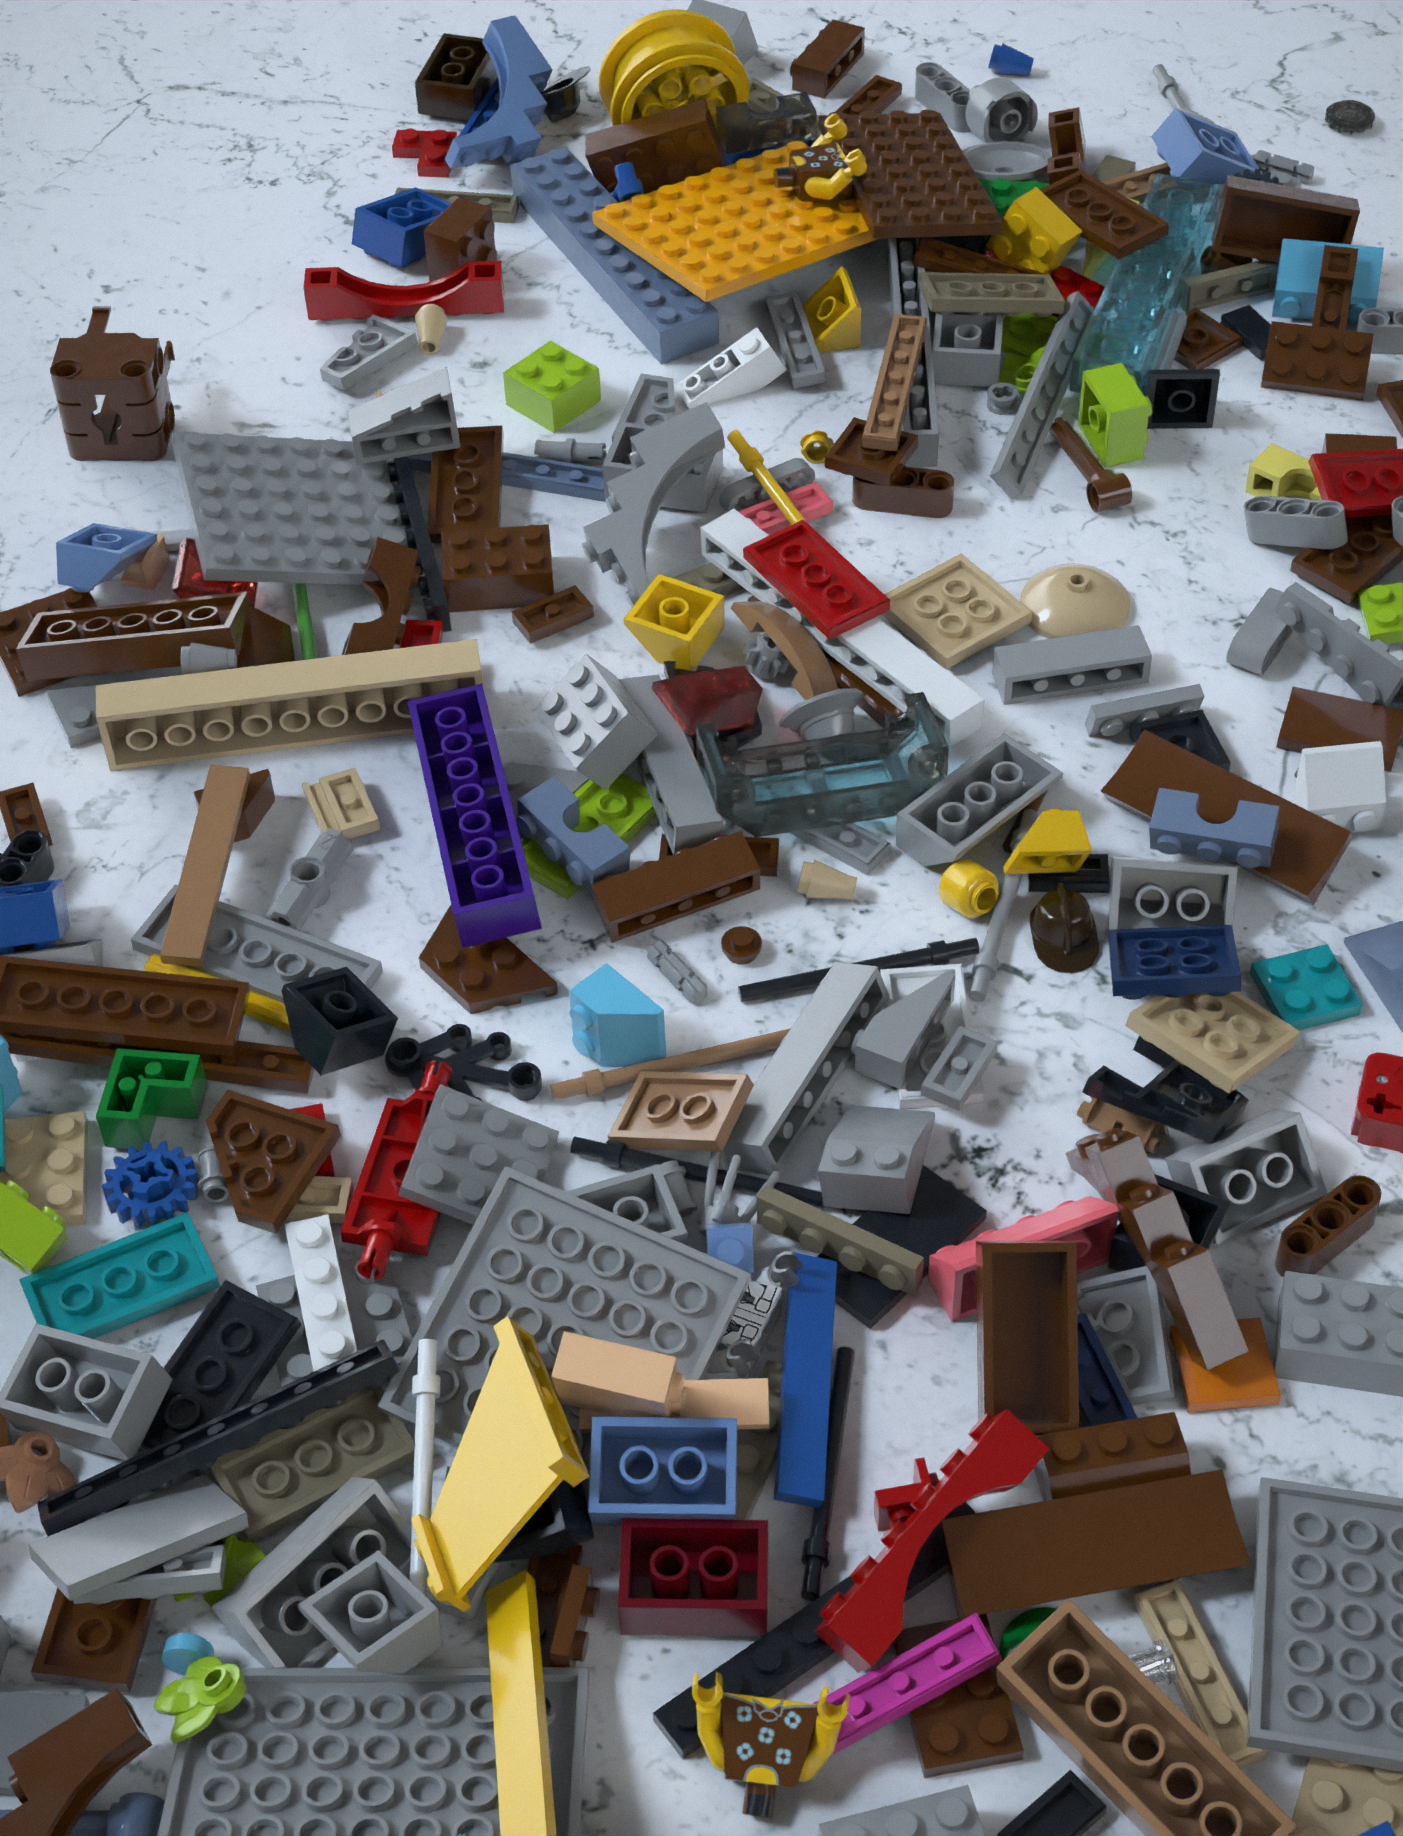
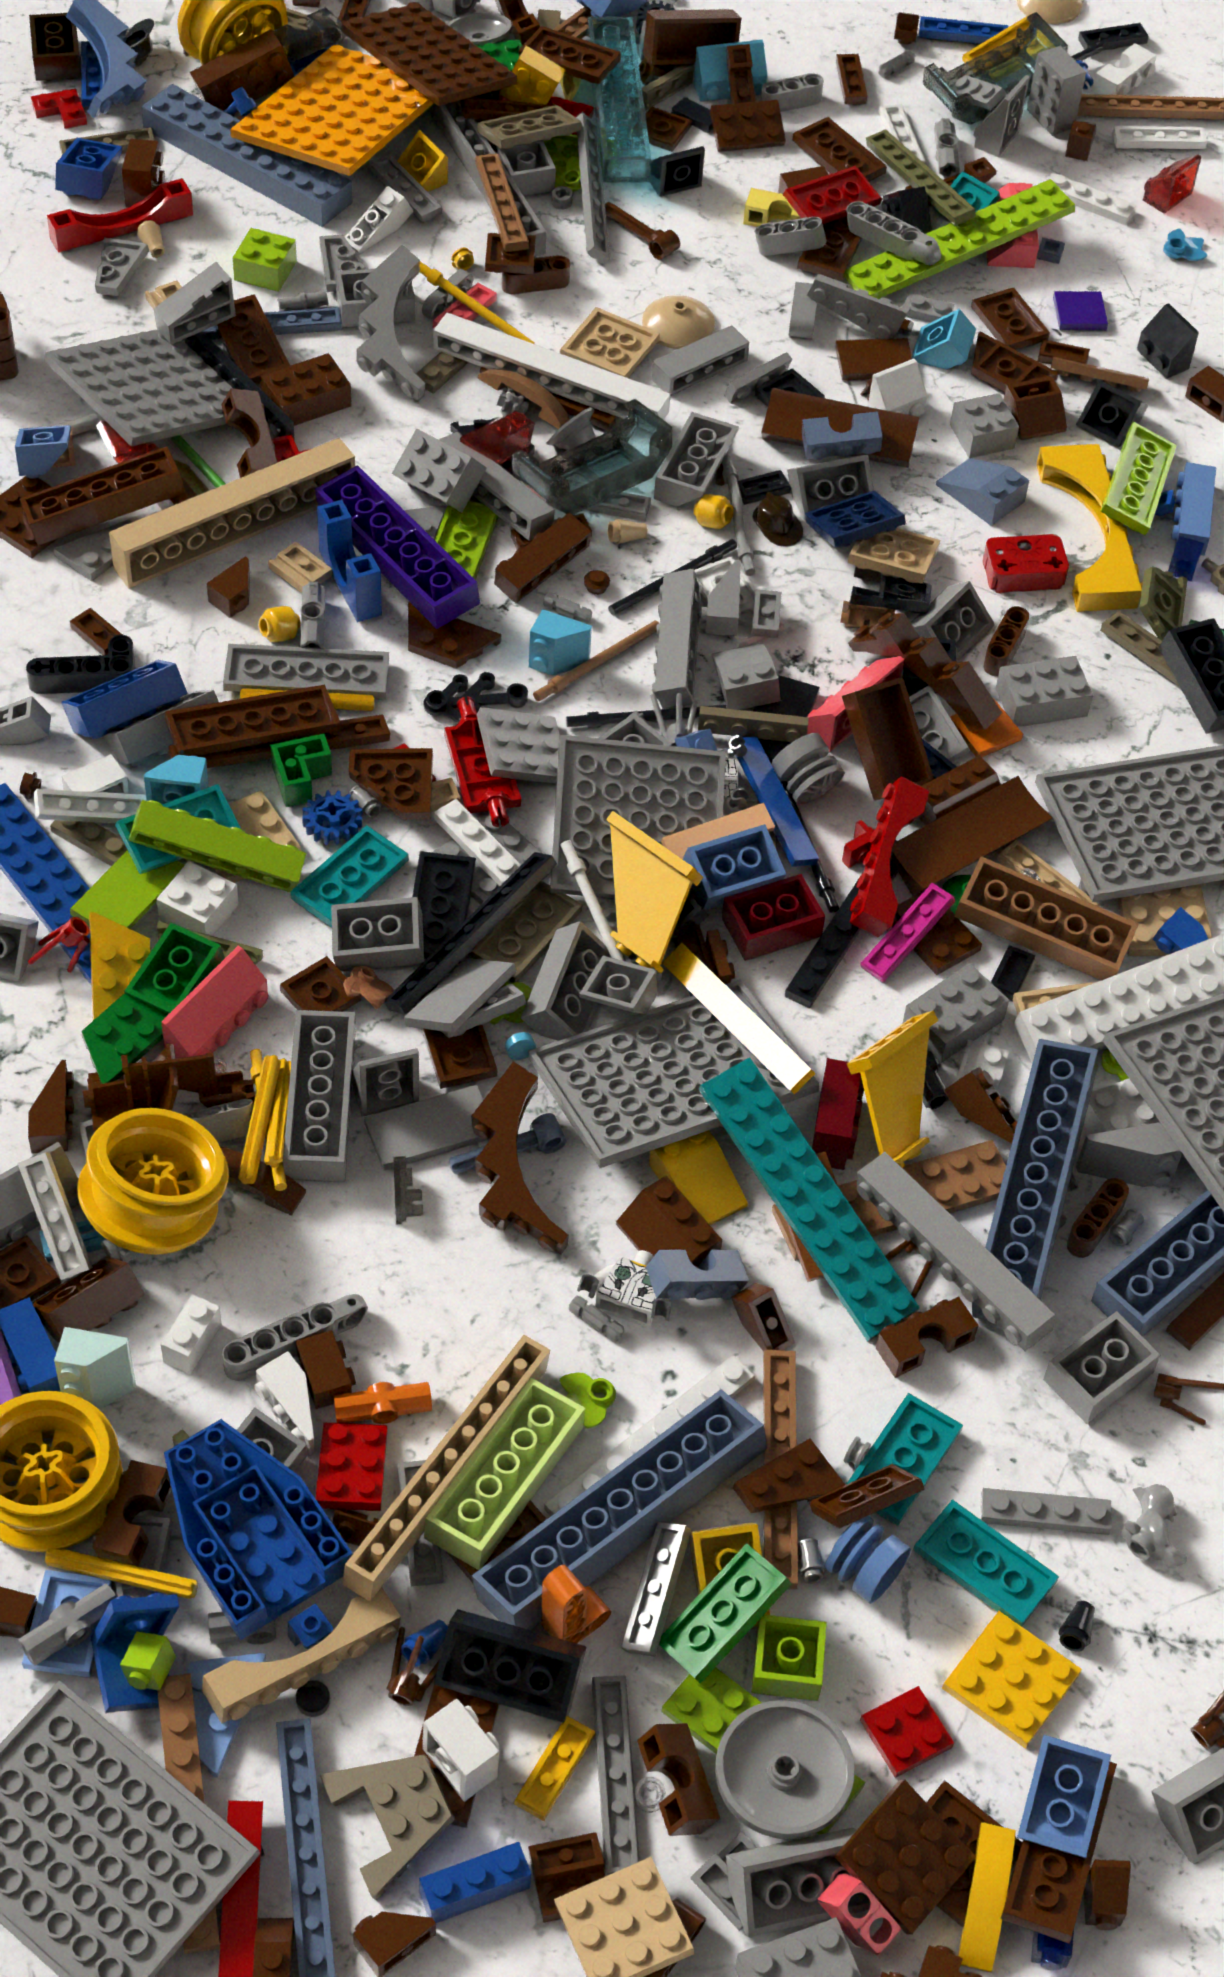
camera: 30 degrees left, 5 degrees up
(196, 1699) = (548, 1057): lime plate -> none
(205, 866) = (247, 624): medium nougat tile -> none
(206, 658) = (168, 496): light grey cone -> none
(260, 876) = (279, 624): none -> yellow head
(337, 1020) = (392, 691): black slope -> none
(393, 831) = (355, 576): none -> blue arch
(550, 815) = (478, 554): sand blue arch -> none
(552, 614) = (358, 412): reddish brown plate -> none
(617, 1378) = (692, 822): light nougat brick -> none
(676, 621) = (446, 394): yellow slope -> none
(681, 1110) = (624, 682): medium nougat plate -> none
(765, 1740) = (856, 978): torso -> none
(816, 579) = (527, 344): red tile -> none
(822, 169) = (374, 64): torso -> none
(880, 1341) = (807, 768): none -> light grey wheel
(1051, 845) = (753, 470): yellow slope -> none
(1114, 415) = (644, 192): lime brick -> none
(1169, 341) = (652, 134): light grey axle -> none
(1306, 988) = (930, 514): teal plate -> none

